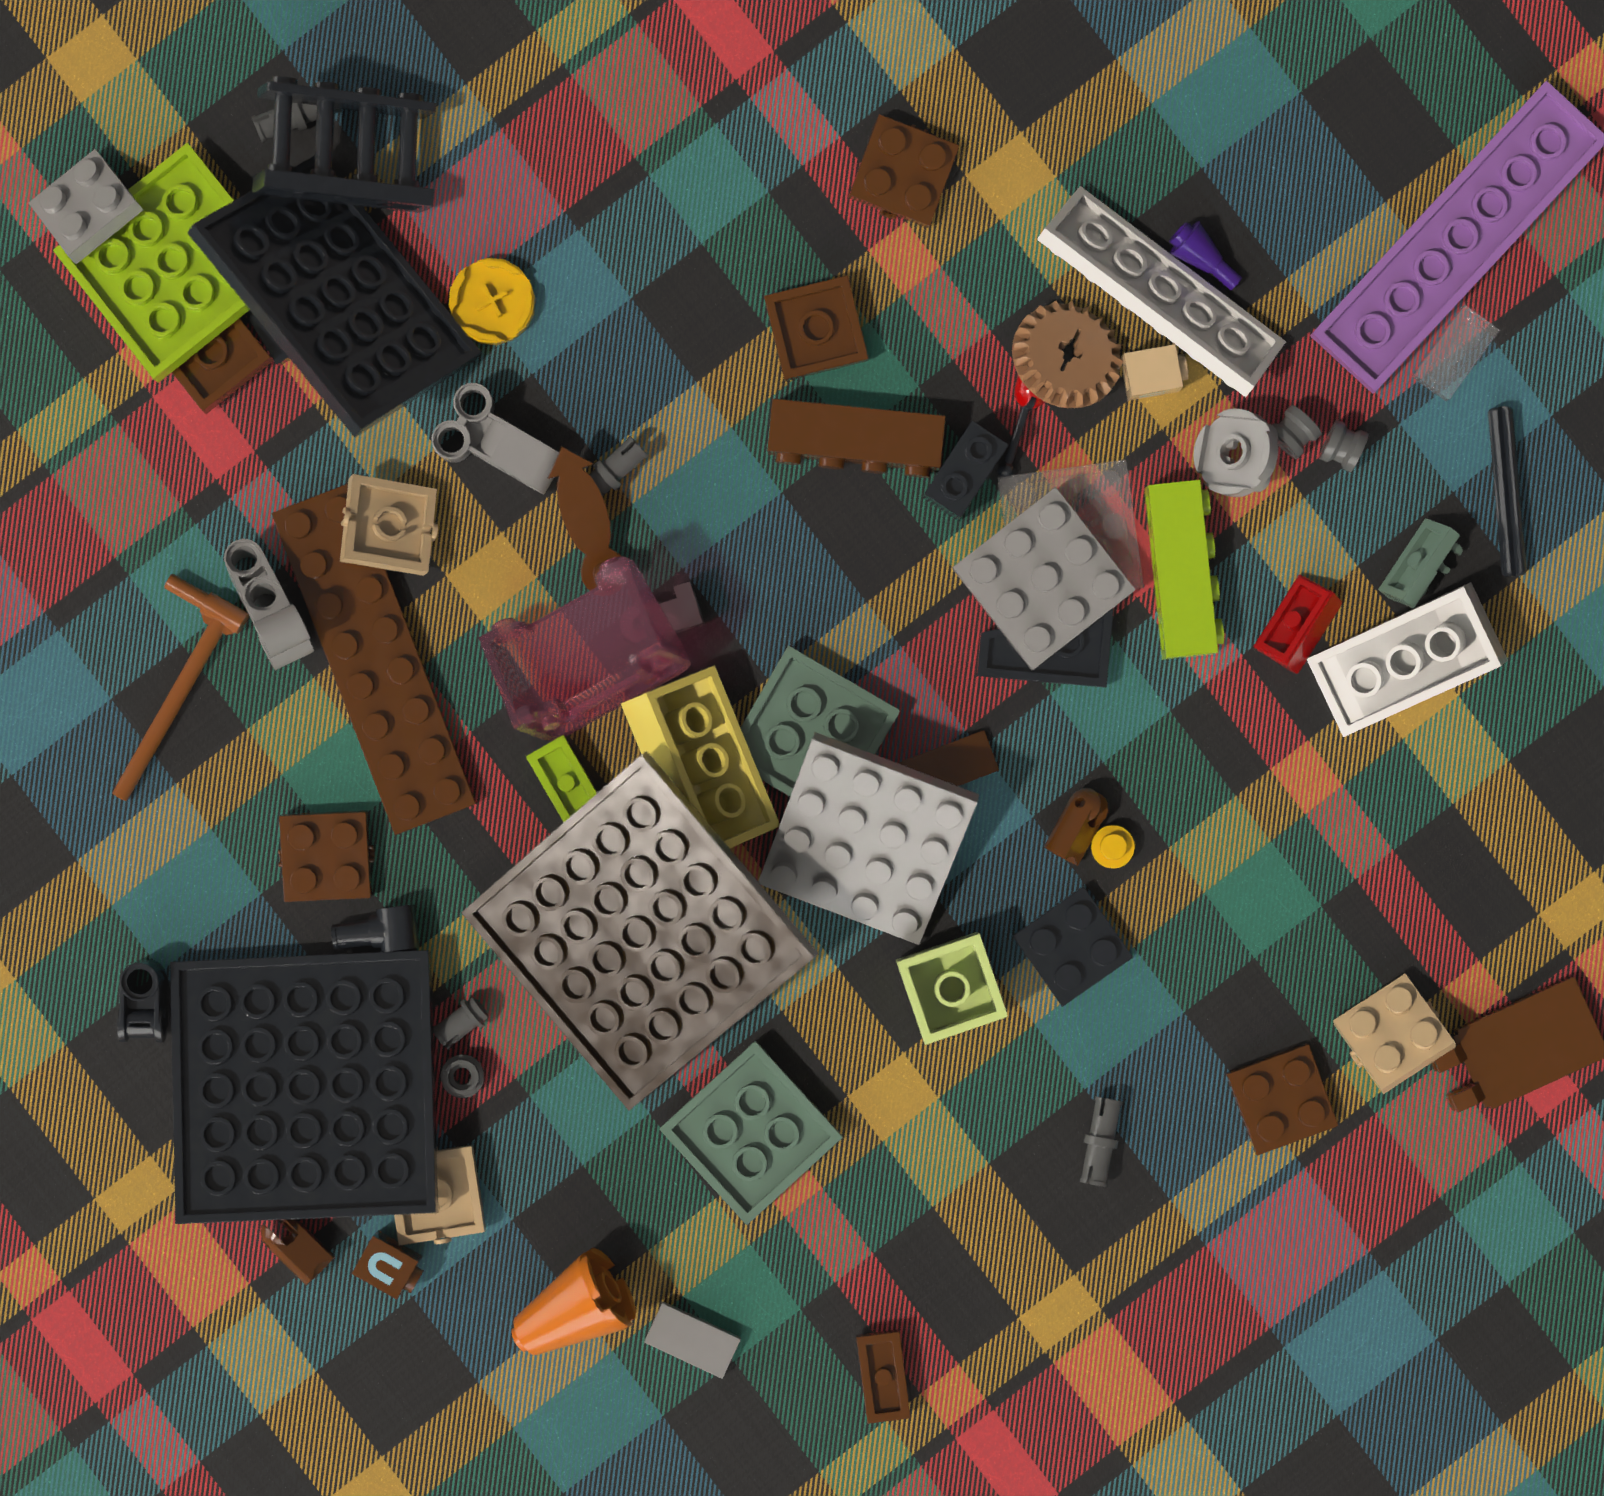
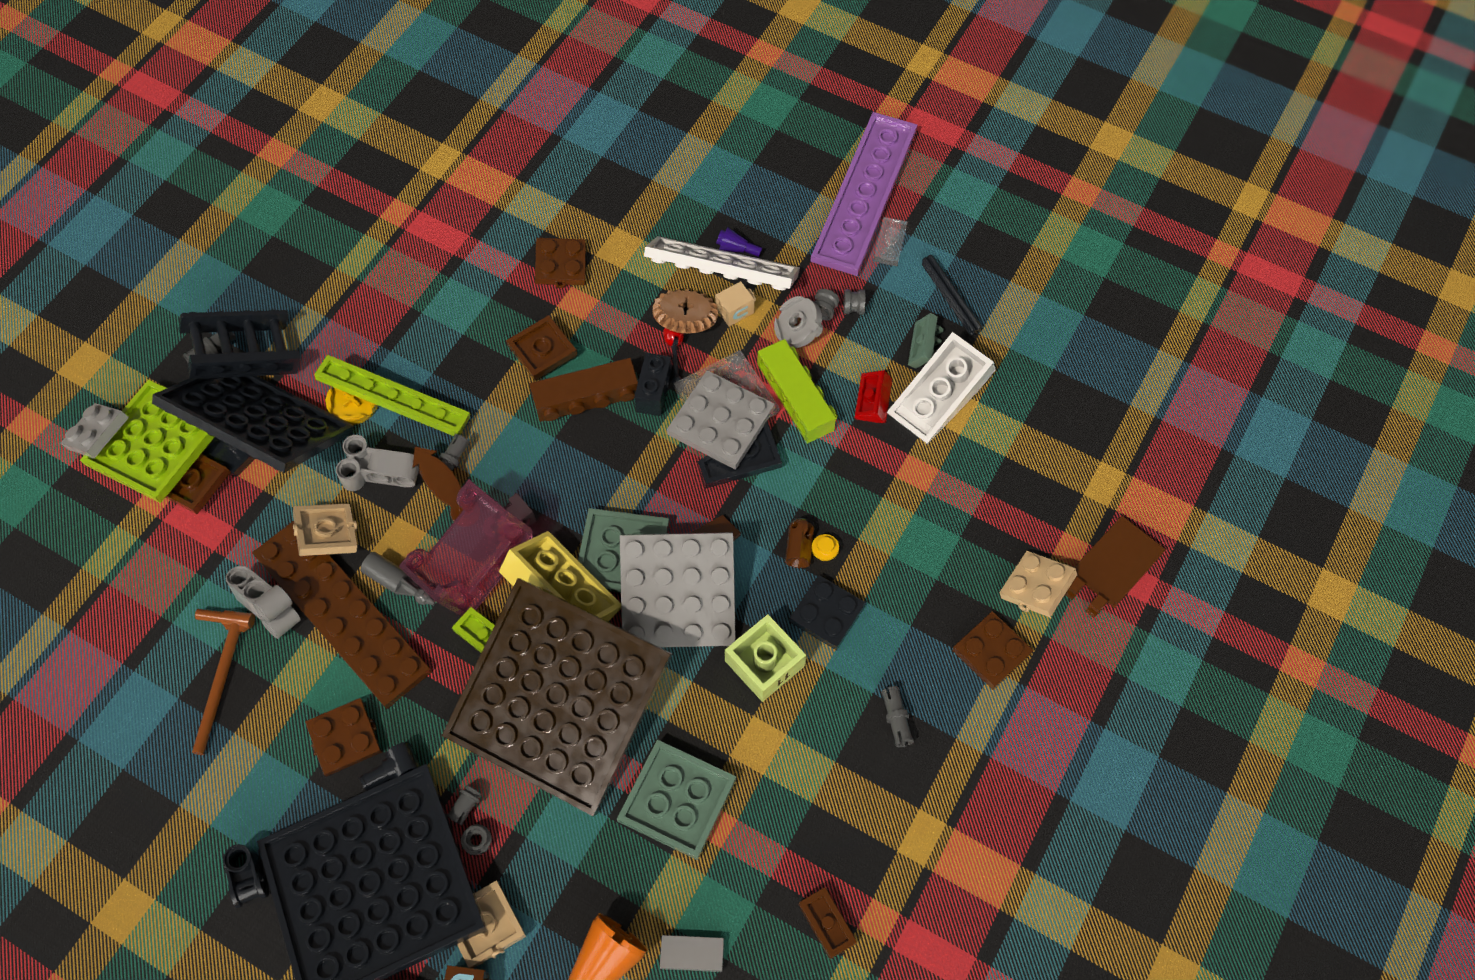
camera: 25 degrees left, 25 degrees down
(461, 636) = (393, 578): none -> dark grey wheel
(555, 329) = (392, 396): none -> lime plate

